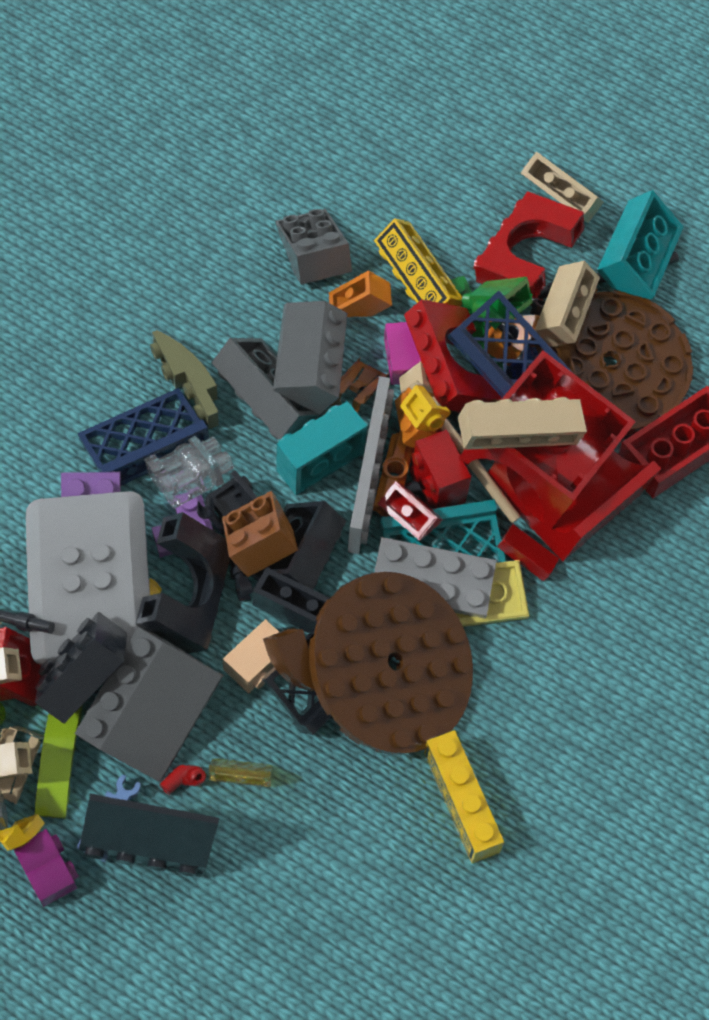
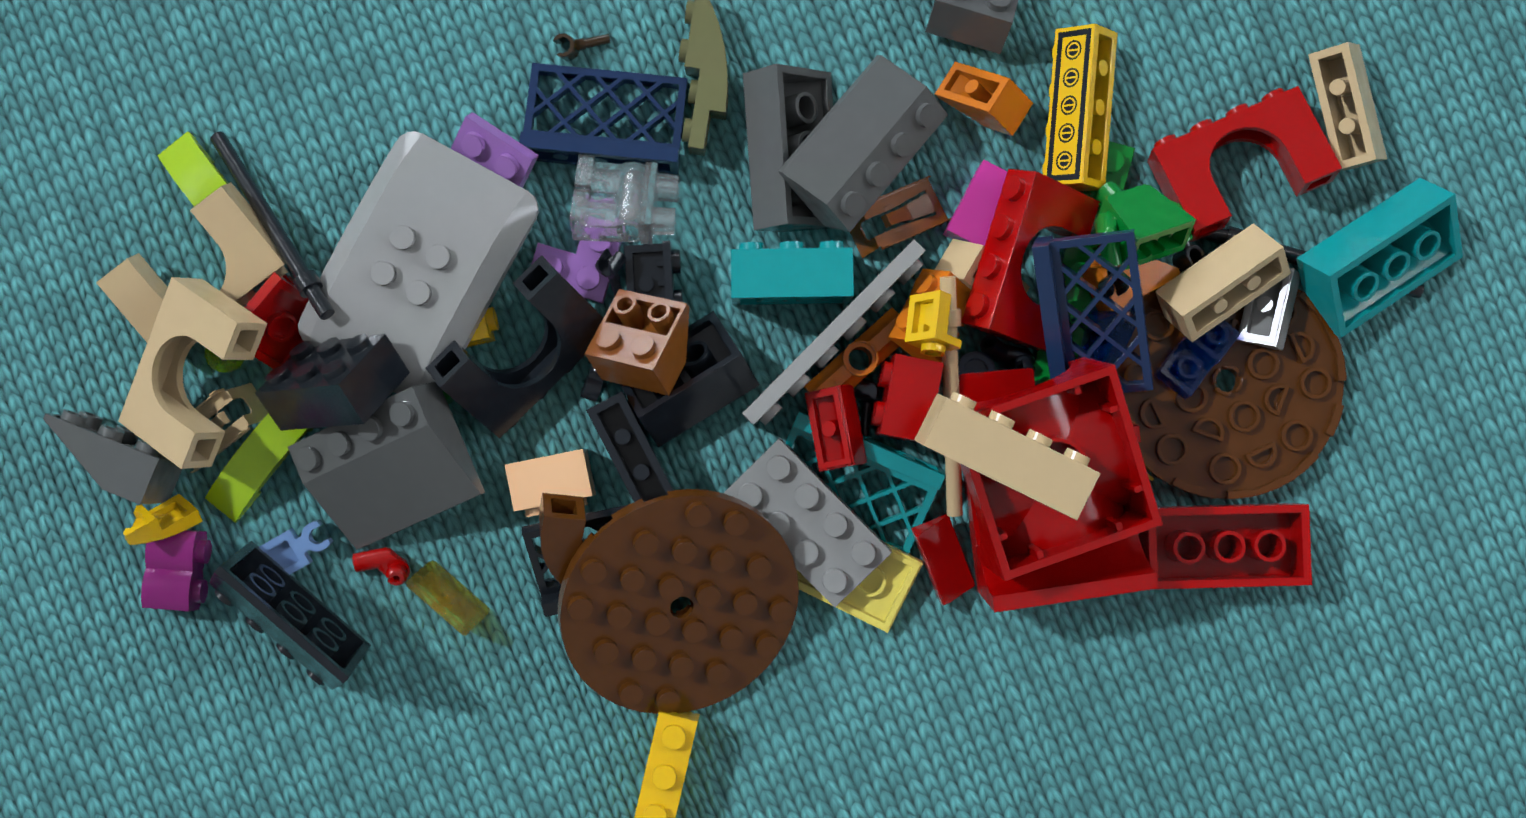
camera: 40 degrees right, 25 degrees up
(91, 407) = (579, 44): none -> dark brown hand
(584, 353) = (1192, 361): none -> clear blue slope
(605, 310) = (1269, 315): none -> light grey slope

